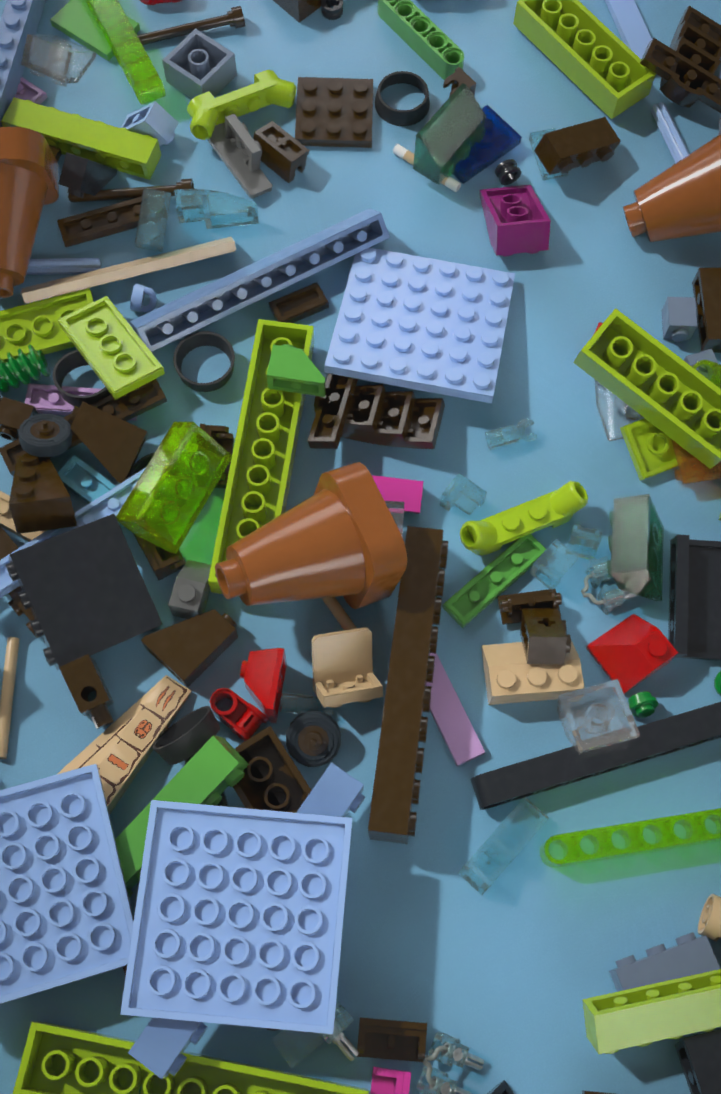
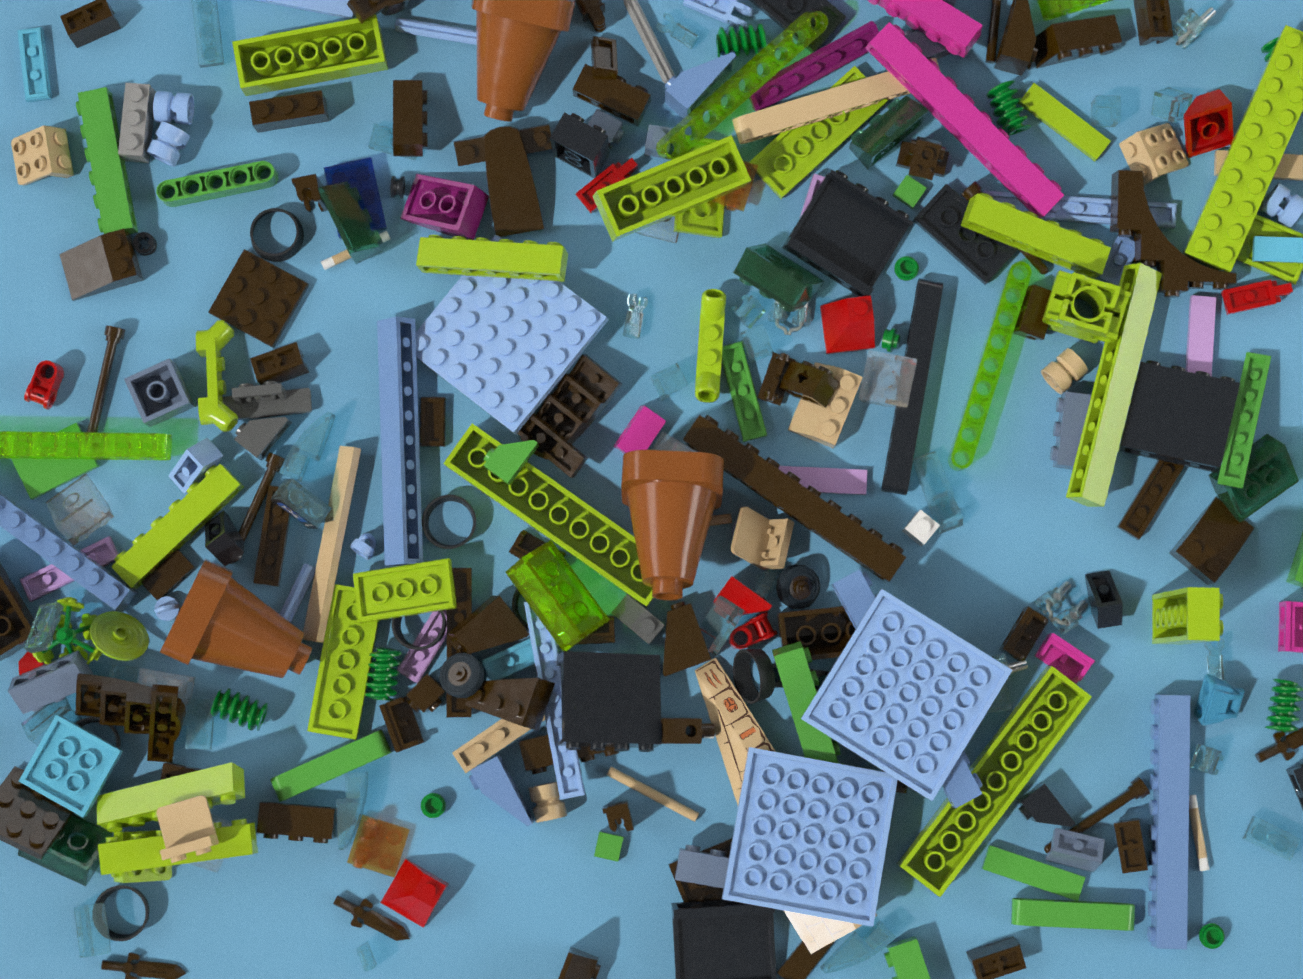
camera: 60 degrees left, 15 degrees up
(205, 166) = (261, 434): none -> dark grey slope
(230, 671) = (721, 622): none -> clear light blue panel
(452, 844) = (921, 528): none -> white brick
(489, 273) = (492, 258): none -> lime brick
(521, 56) = (289, 111): none -> dark brown brick
(580, 257) = (508, 173): none -> dark brown slope
(652, 289) = (580, 144): none -> black brick

